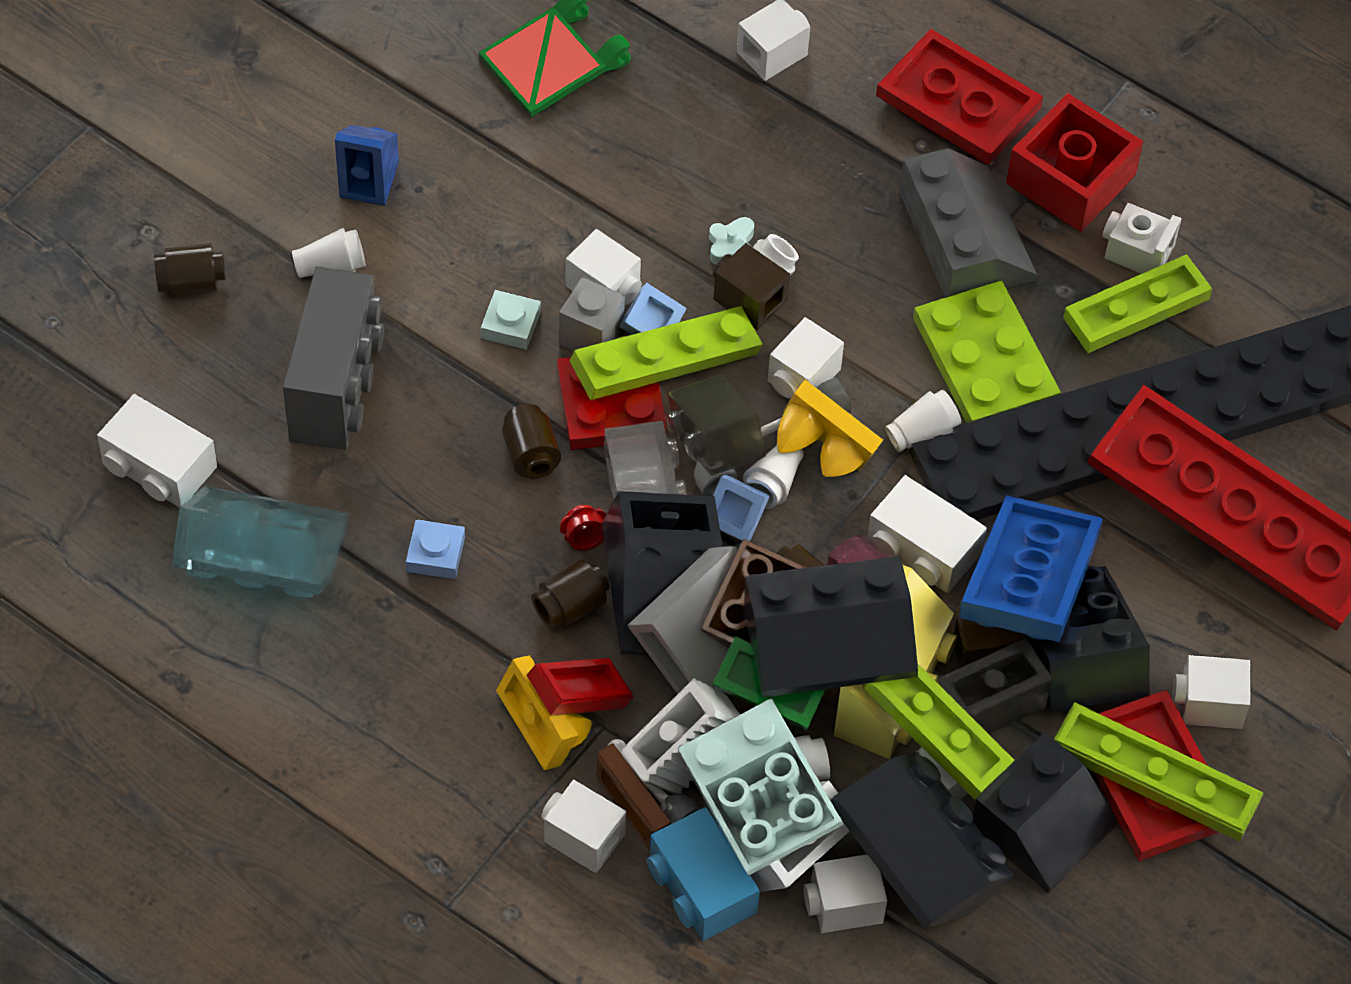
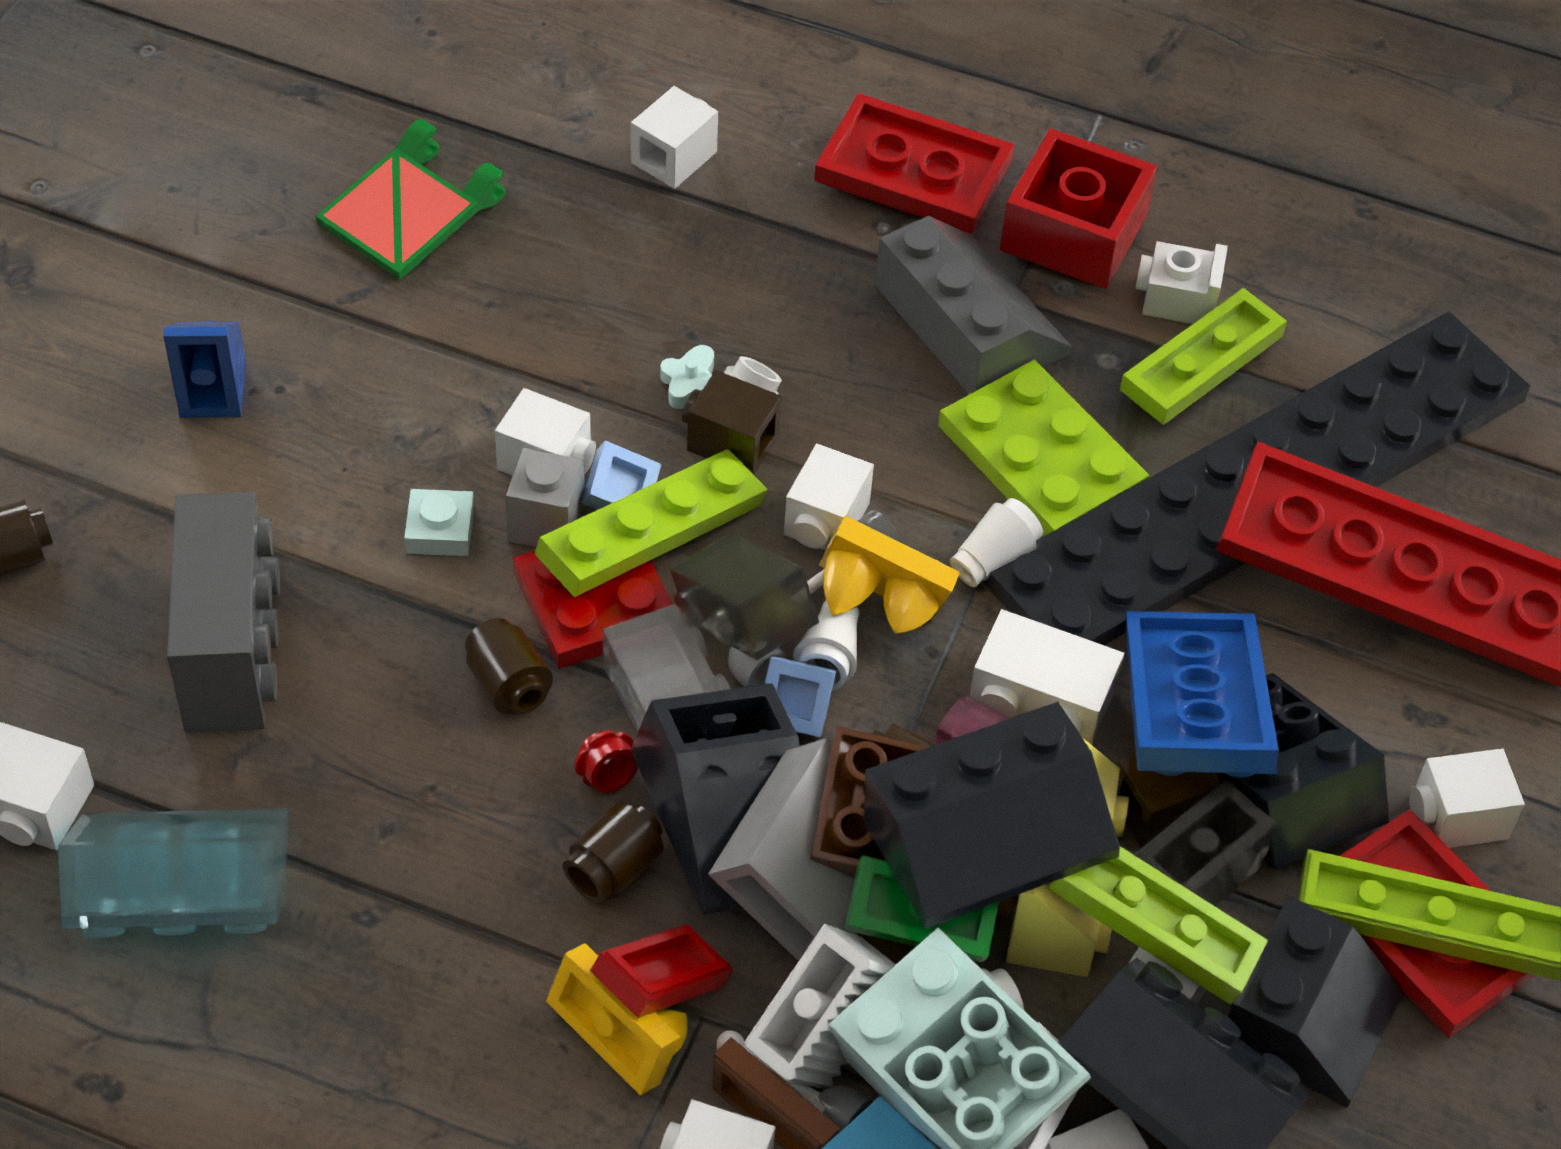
camera: 15 degrees left, 5 degrees down
(335, 251) = (190, 475): white cone -> none
(435, 549) = (416, 831): light blue plate -> none

